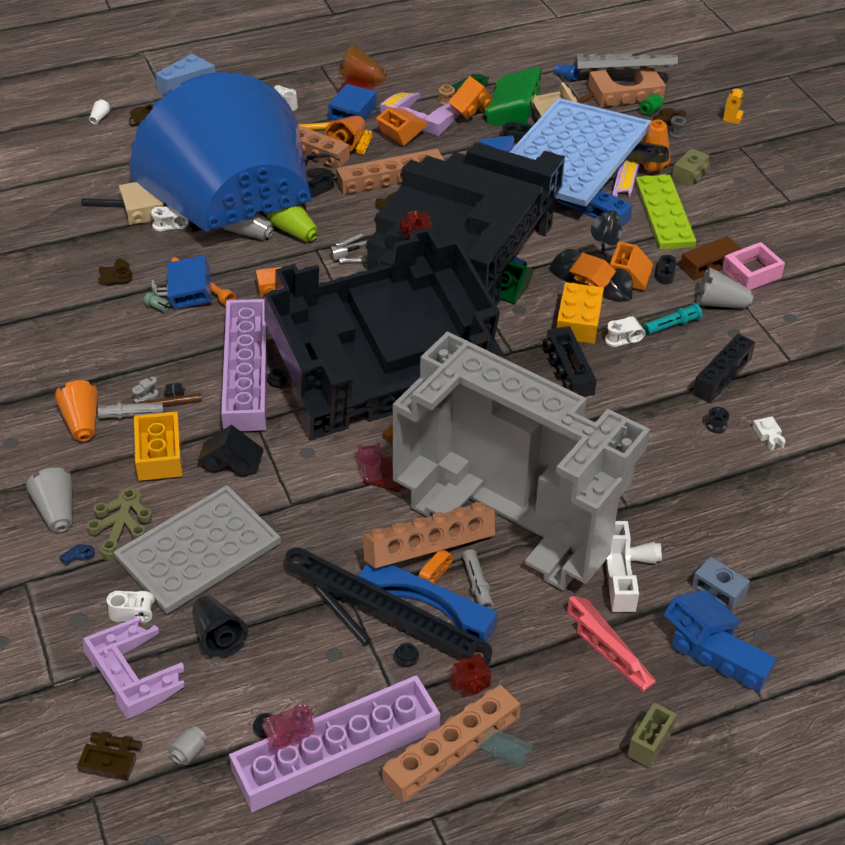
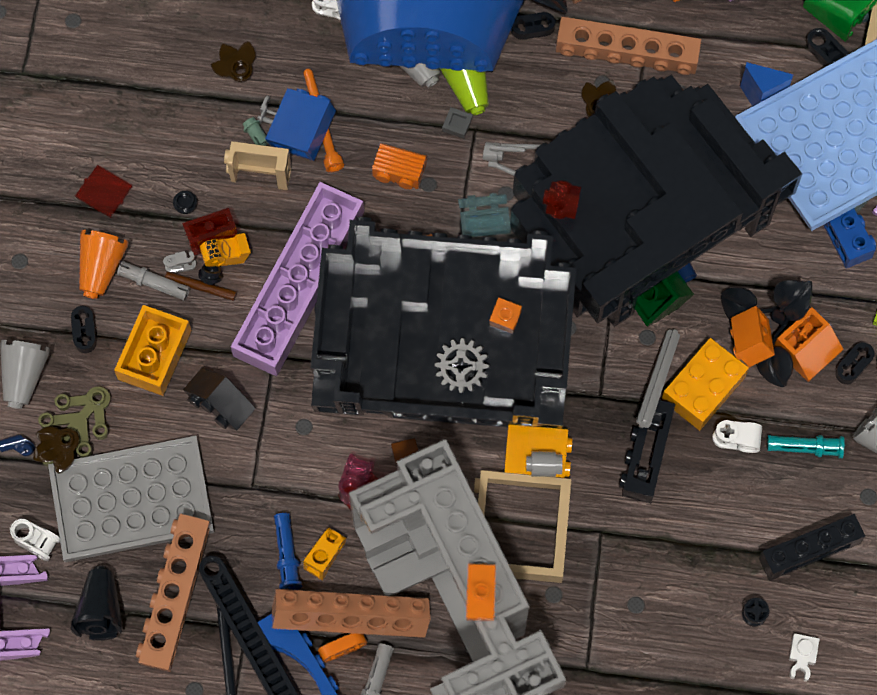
camera: 30 degrees right, 25 degrees up
(55, 376) = (103, 191): none -> clear red piece
(94, 459) = (78, 329): none -> black beam
(114, 534) = (54, 450): none -> dark brown plate
(126, 358) = (185, 202): none -> black plate
(159, 361) = (208, 227): none -> clear red brick
(172, 309) = (259, 160): none -> tan panel
(178, 370) = (225, 251): none -> light orange leg
(293, 638) = (164, 657): none -> nougat brick
(302, 247) = (457, 123): none -> dark grey plate
(354, 534) = (288, 563): none -> blue pin
(379, 513) = (324, 553): none -> light orange leg
(406, 353) = (462, 353): none -> light grey gear
(420, 308) = (505, 315): none -> orange brick
(545, 402) = (480, 592): none -> orange plate
(547, 317) = (658, 378): none -> light grey axle

